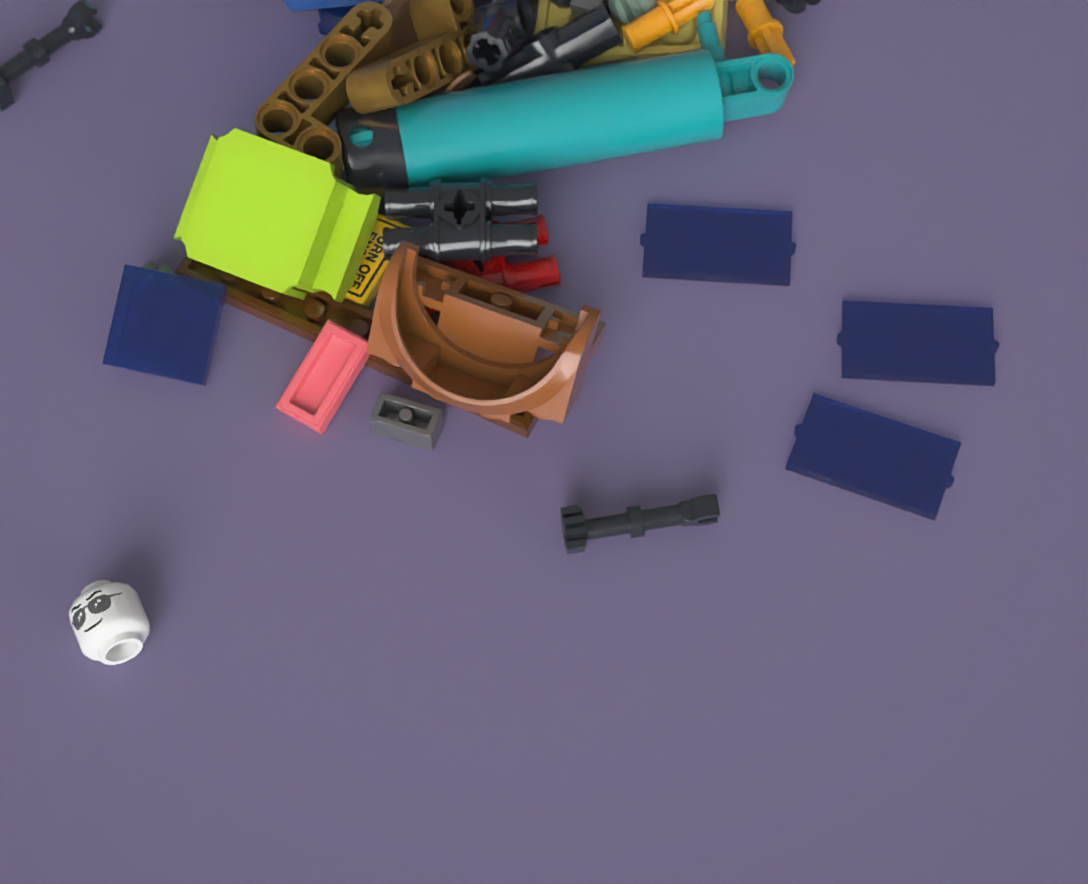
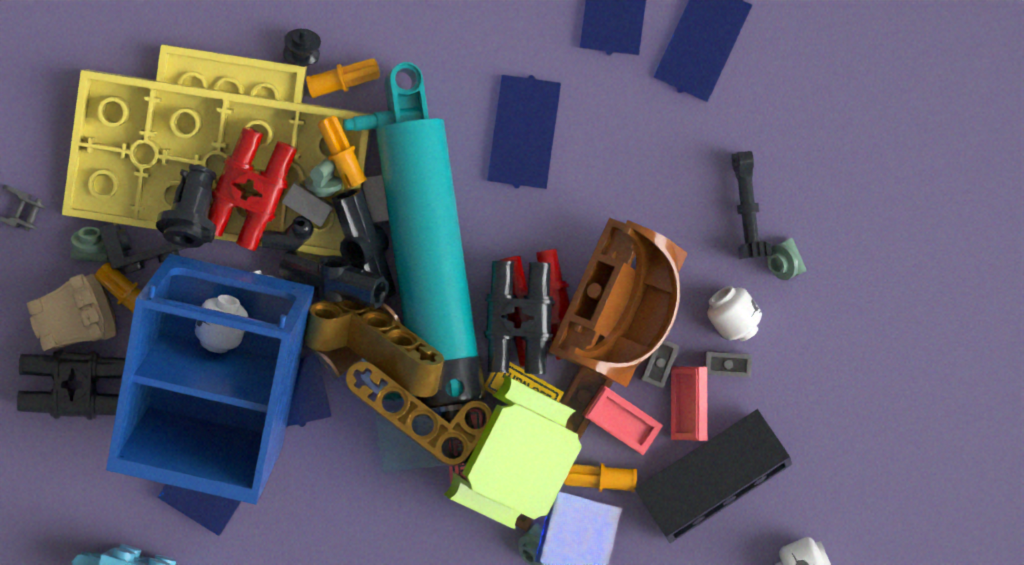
camera: 95 degrees left, 25 degrees up
(243, 496) = (714, 476): none -> black brick
(245, 358) = (602, 477): none -> light orange axle
(348, 457) = (689, 403): none -> coral tile
(406, 509) = (728, 364): none -> flat silver piece
(479, 508) = (734, 313): none -> white head
(563, 580) = (786, 260): none -> sand green plate

